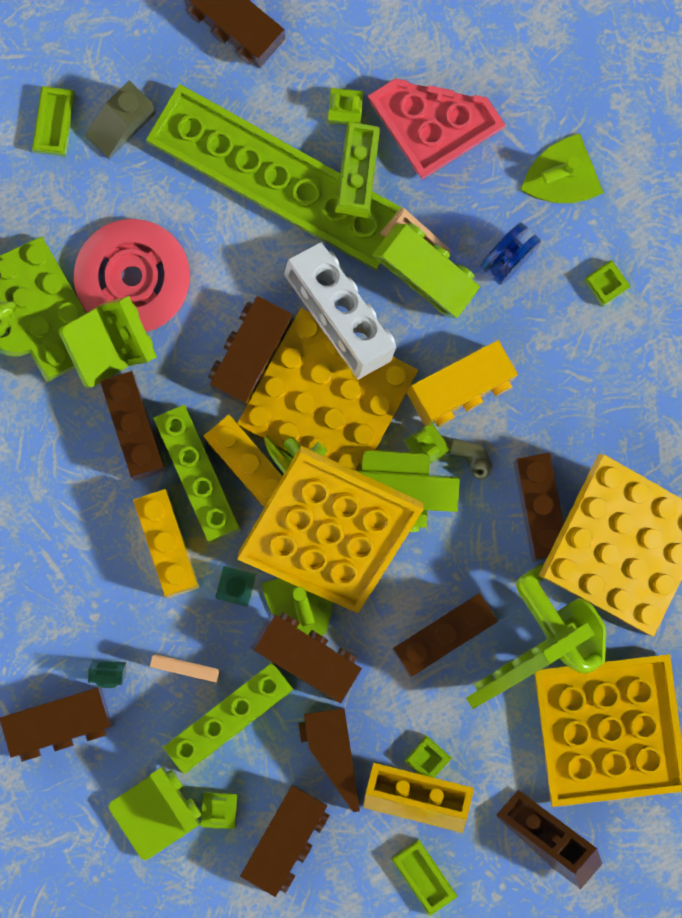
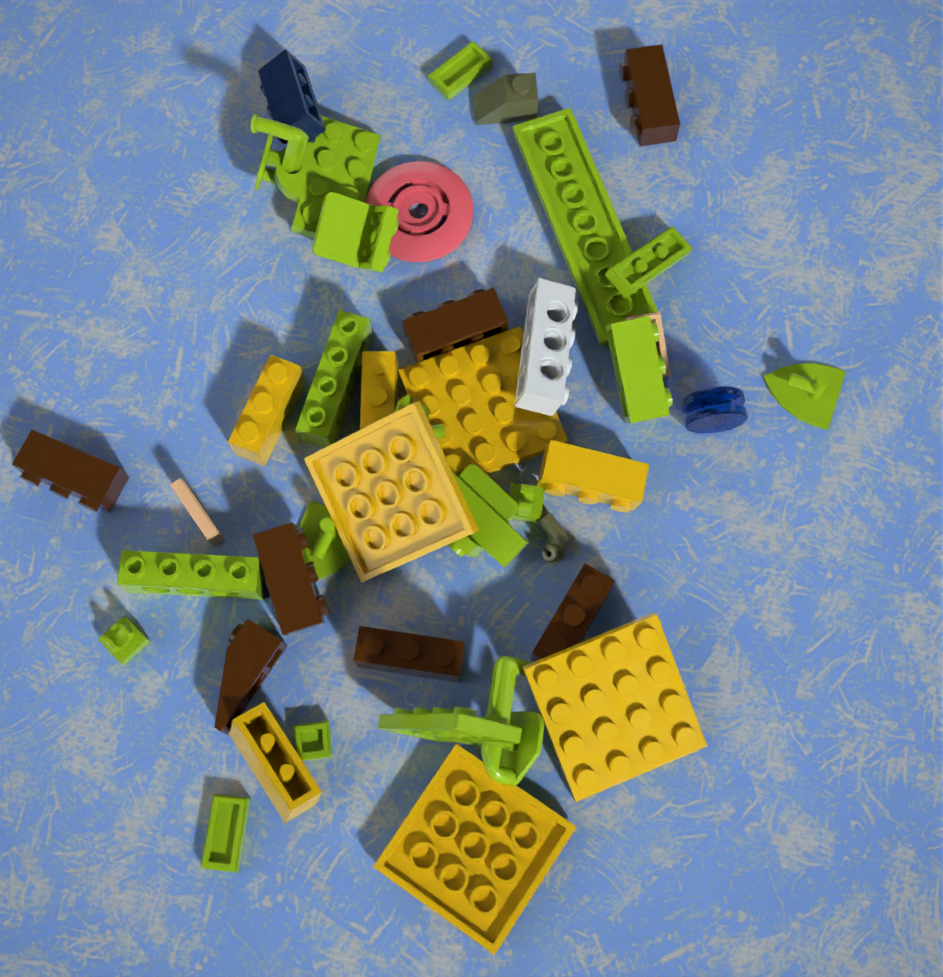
camera: 45 degrees right, 10 degrees down
(107, 673) = (139, 466): clear green plate -> none
(132, 426) = (316, 314): reddish brown brick -> none
(155, 813) = (76, 599): lime bracket -> none
(235, 586) = (289, 484): clear green plate -> none
(285, 841) = (146, 706): reddish brown brick -> none
(345, 106) = (680, 215): lime tile -> none
(434, 122) = (737, 277): coral plate -> none
(551, 839) = (349, 893): reddish brown slope -> none
(607, 283) = (773, 497): lime tile -> none

